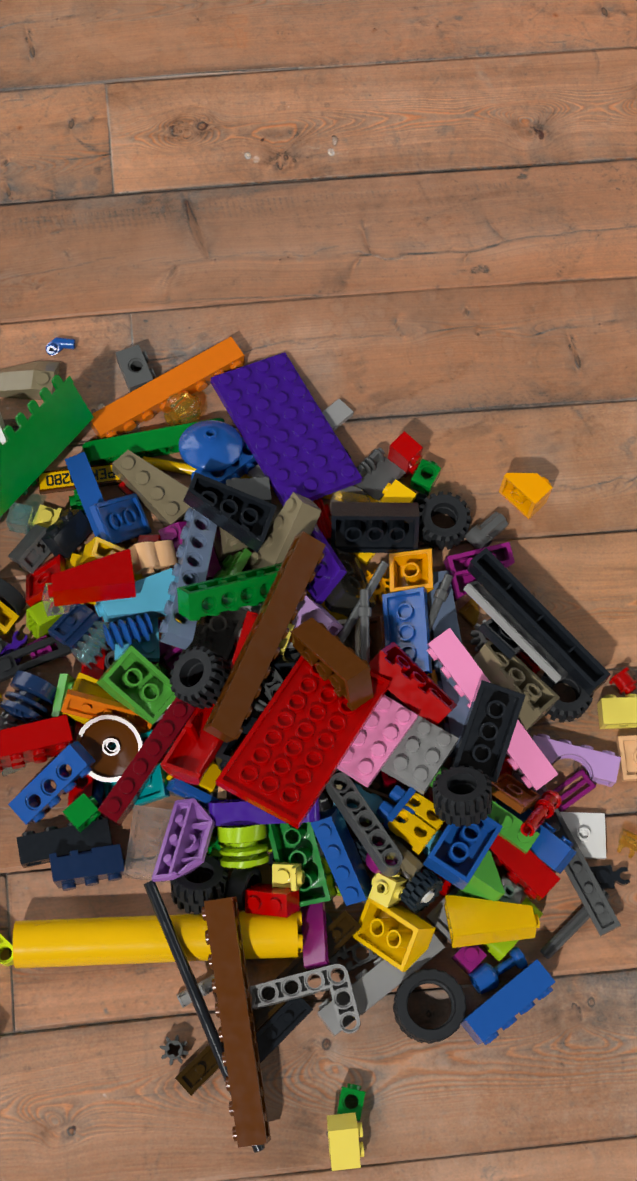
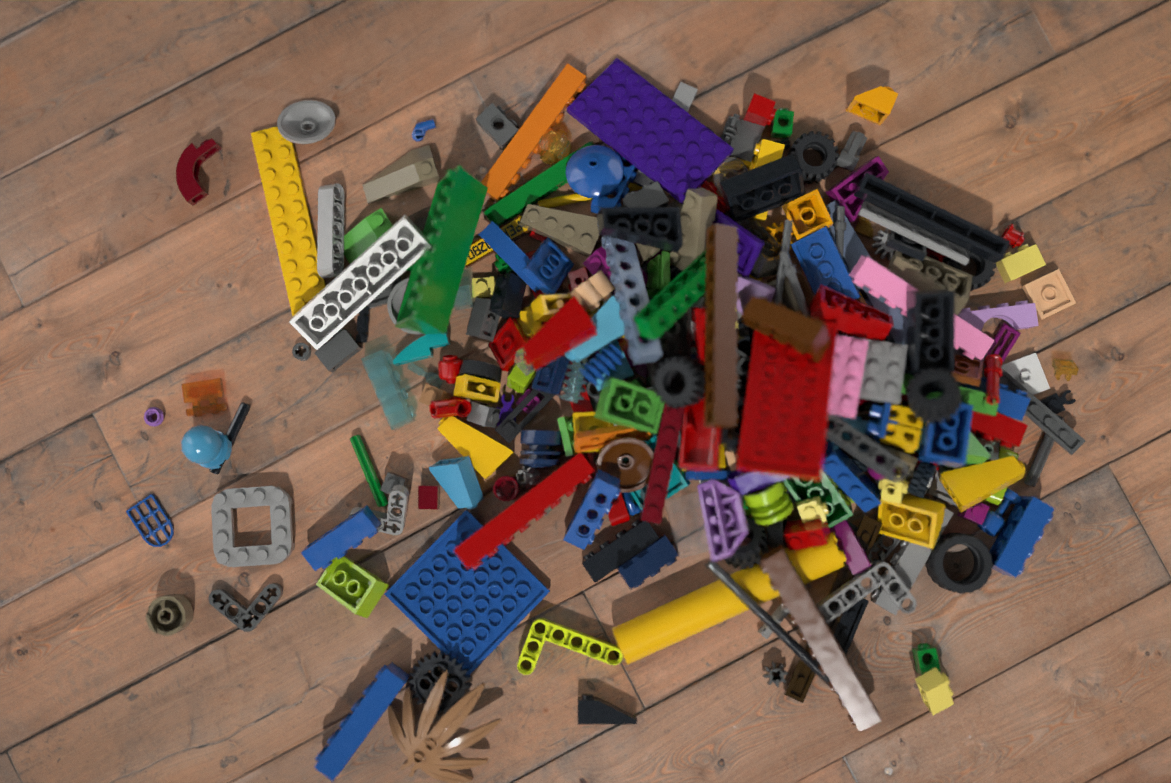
camera: 15 degrees left, 15 degrees up
(82, 812) = (627, 523): green brick -> none

